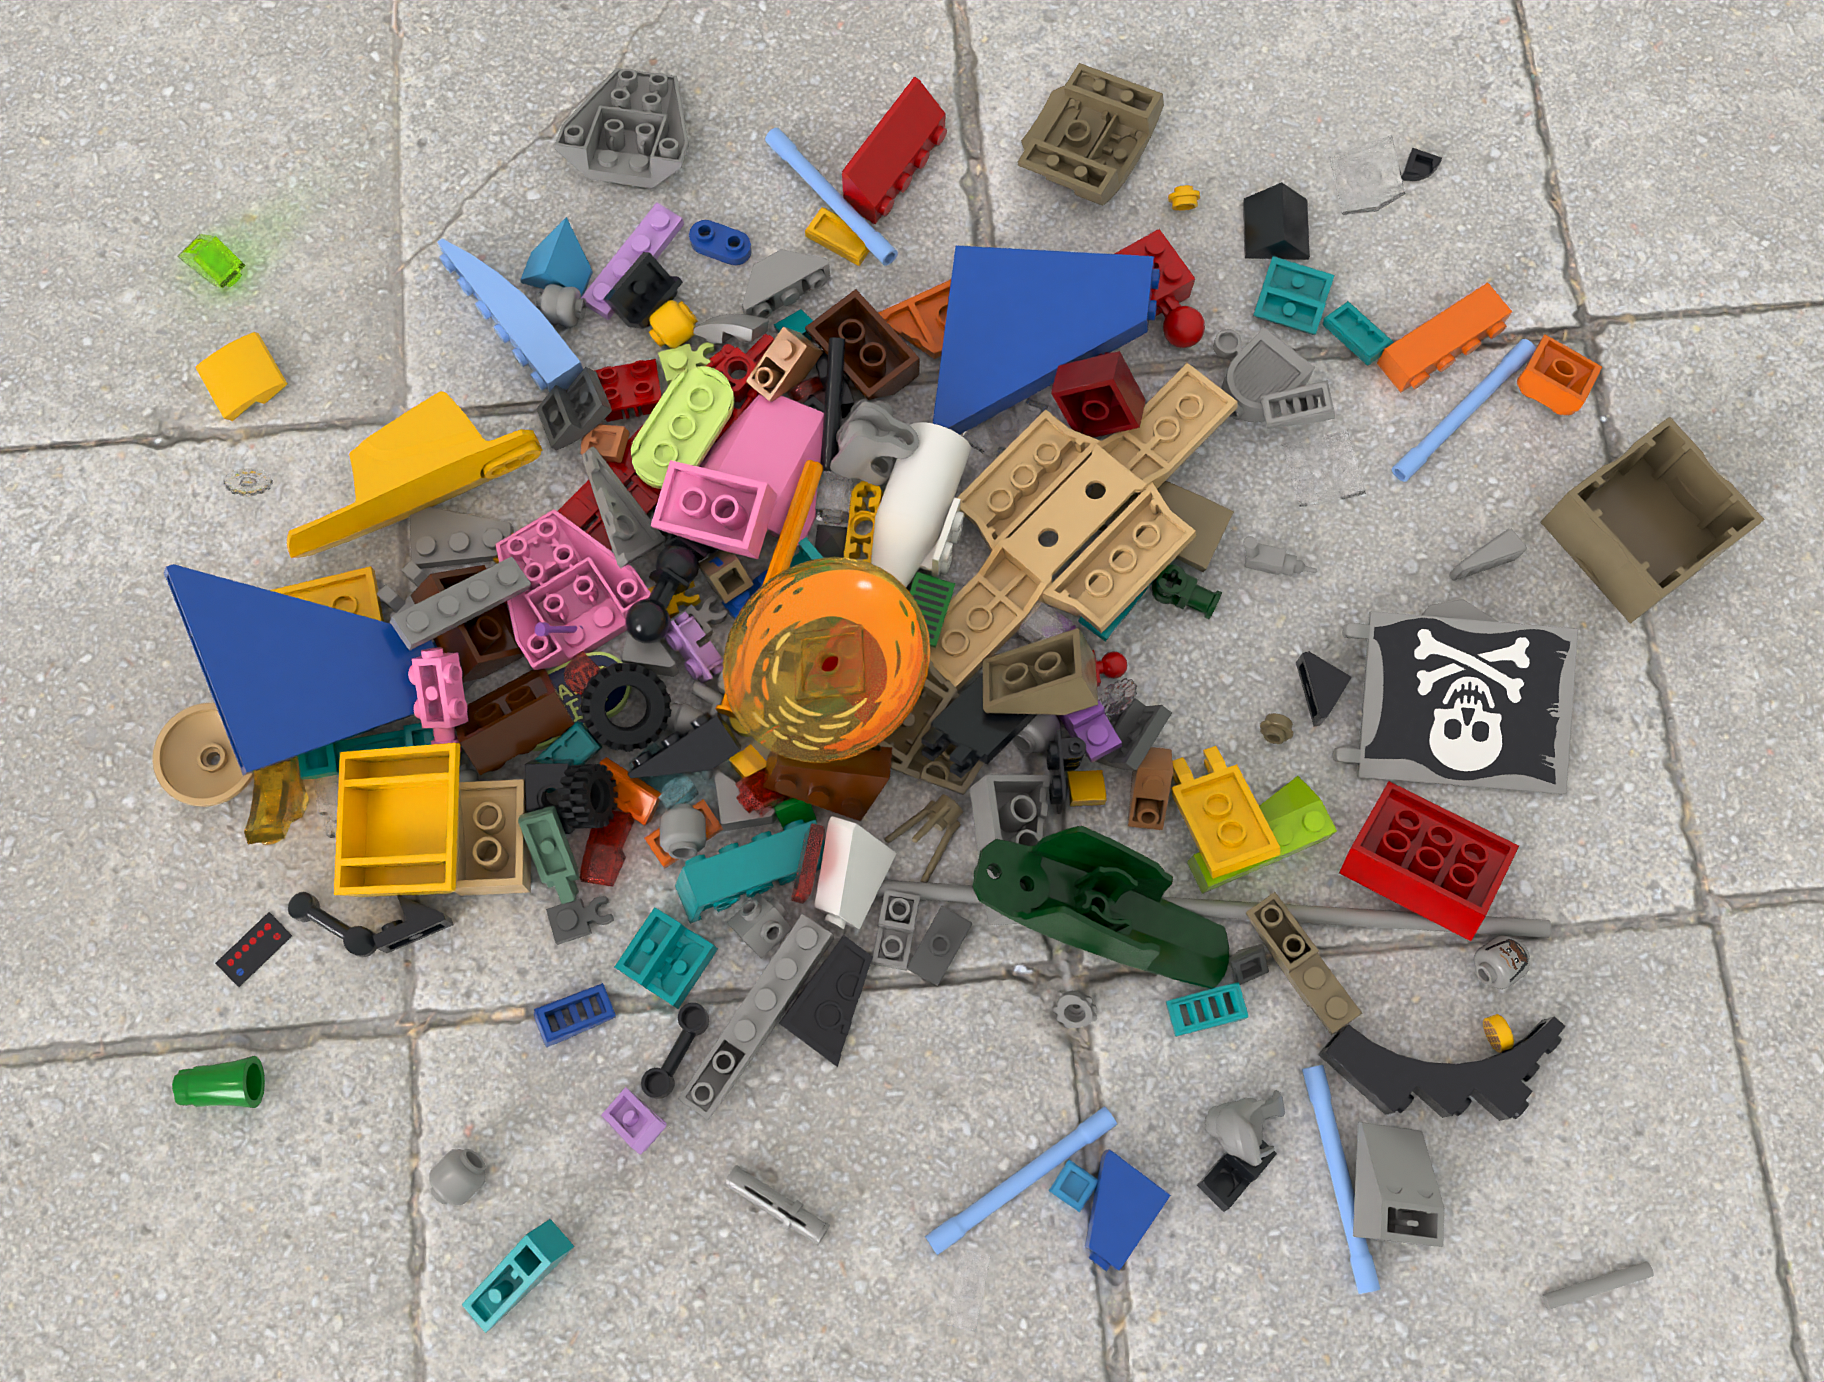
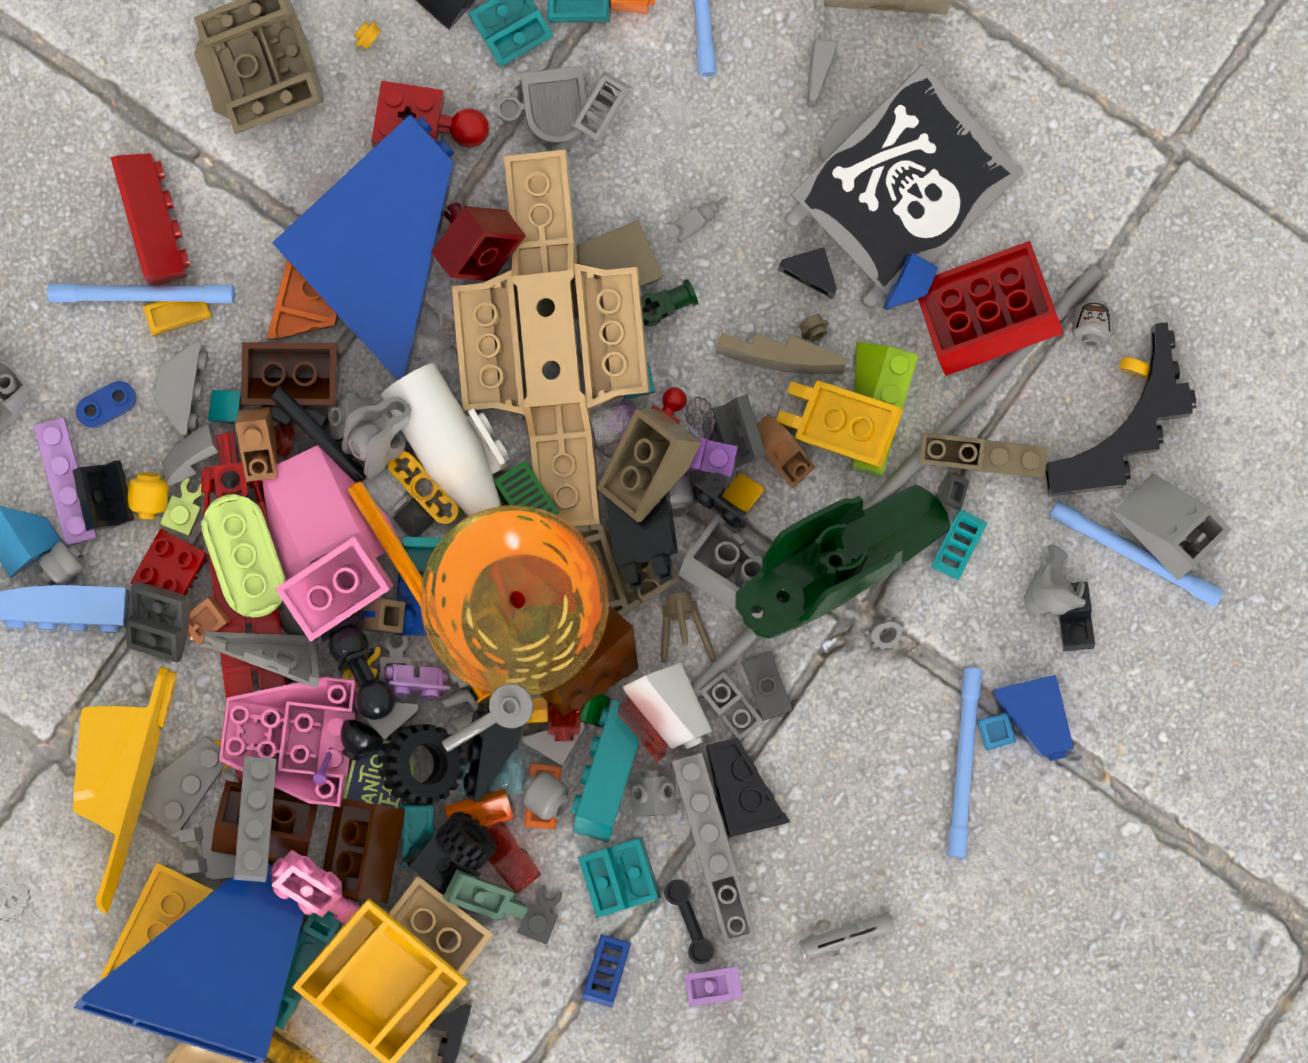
camera: 50 degrees left, 10 degrees up
(579, 672) = (367, 776): clear red tile -> none
(605, 639) = (358, 739): none -> black brick
(730, 732) = (509, 707): none -> light grey piece
(1236, 726) = (794, 357): none -> dark tan slope
(1390, 777) = (912, 282): none -> blue slope

